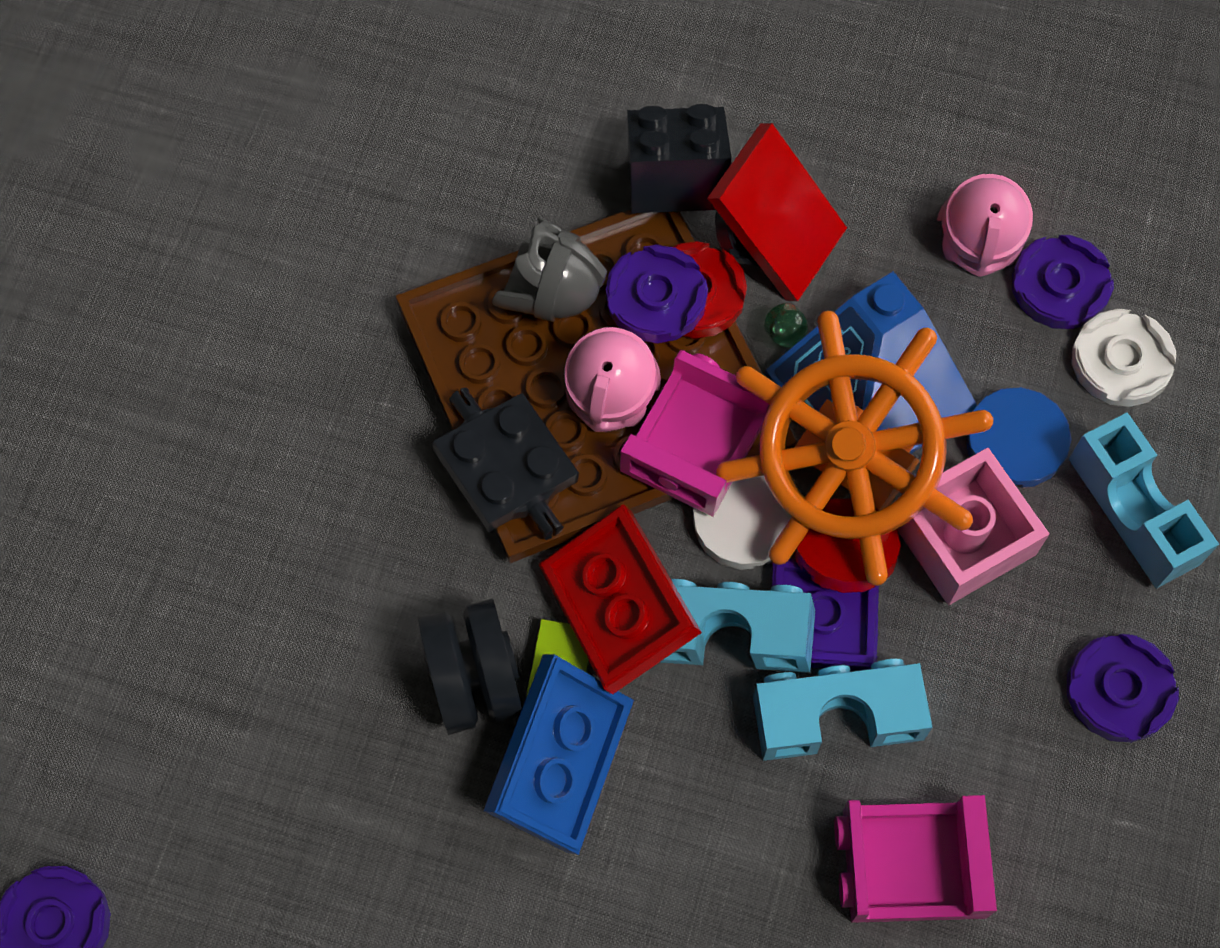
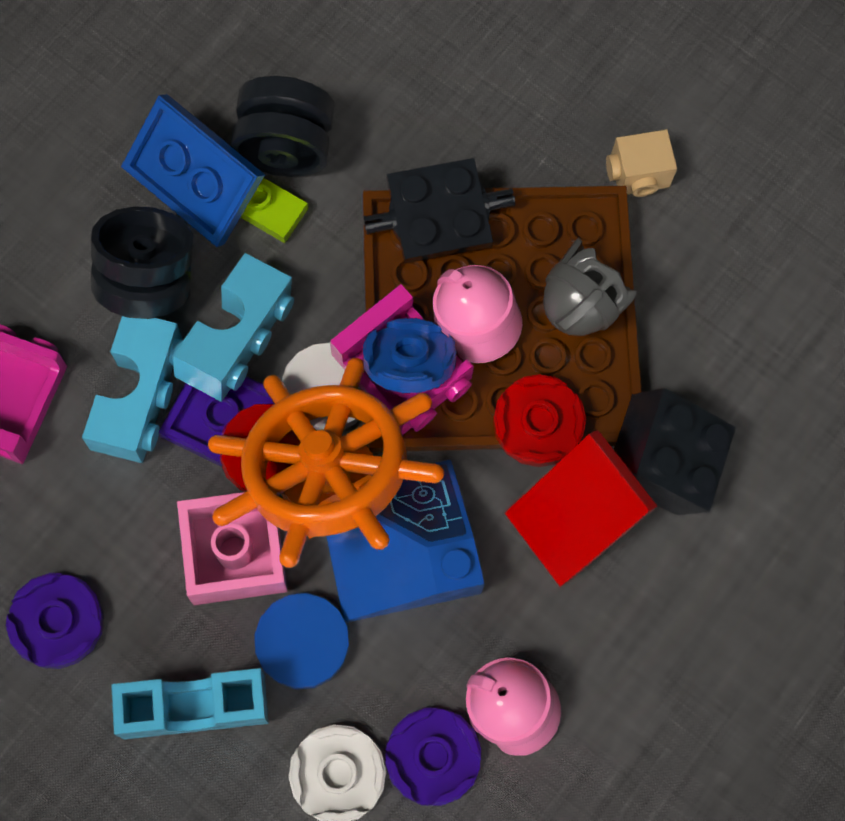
camera: 105 degrees right, 5 degrees up
(359, 293) = (642, 162): none -> tan brick
(619, 599) = (291, 252): red tile -> none
(656, 293) = (540, 377): dark purple tile -> none
(698, 412) = (409, 356): none -> blue tile
(704, 750) = (141, 262): none -> black wheel
(786, 325) = (480, 488): clear green hinge -> none

